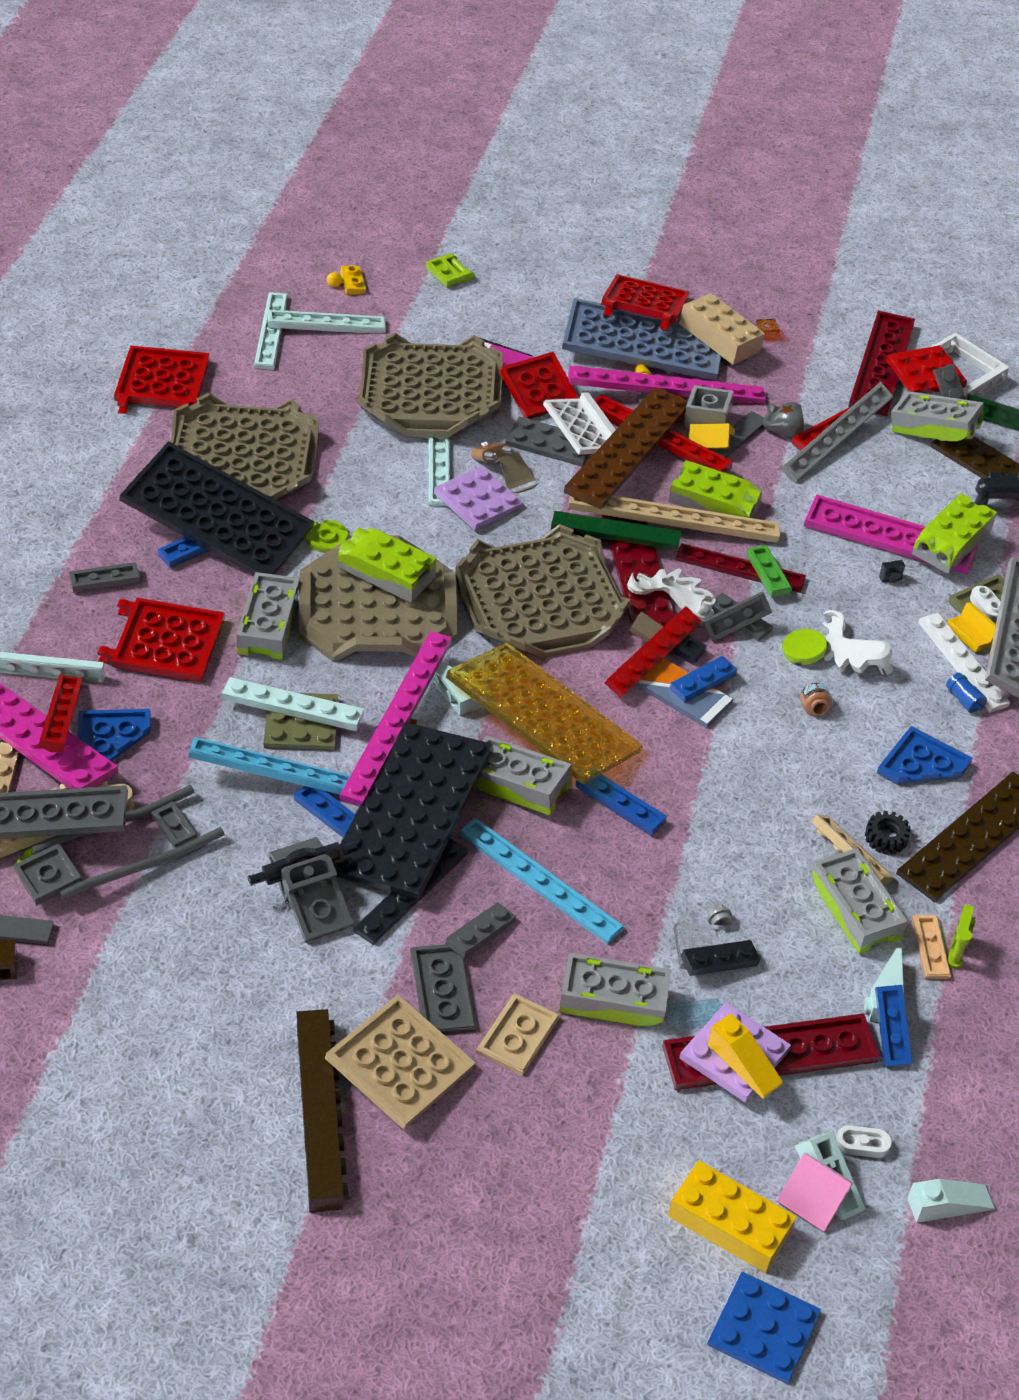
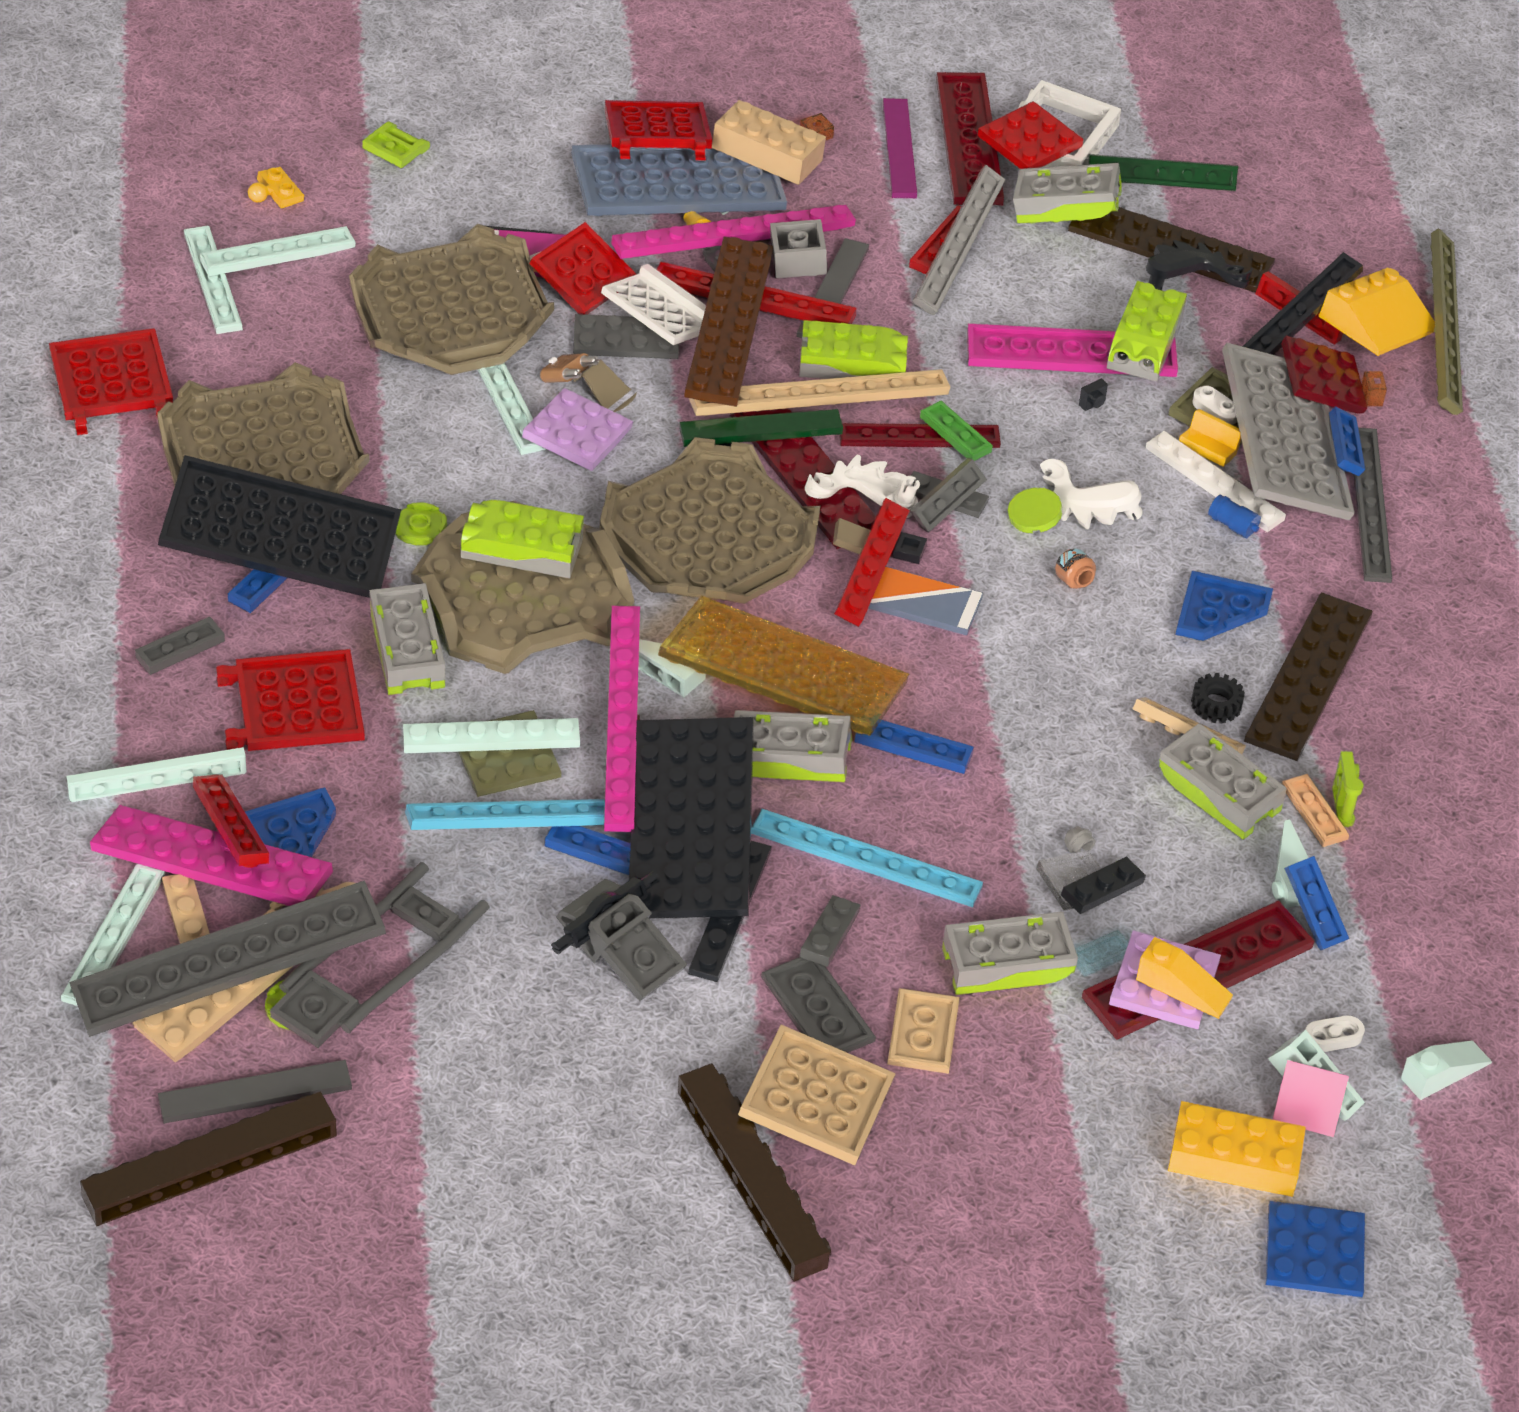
camera: 20 degrees left, 0 degrees up
(703, 679) = (941, 578): blue plate -> none
(712, 435) = (817, 281): yellow panel -> none
(784, 420) = (892, 240): dark grey piece -> none
(825, 358) = (899, 148): none -> magenta tile
(949, 382) = (1065, 146): dark grey plate -> none

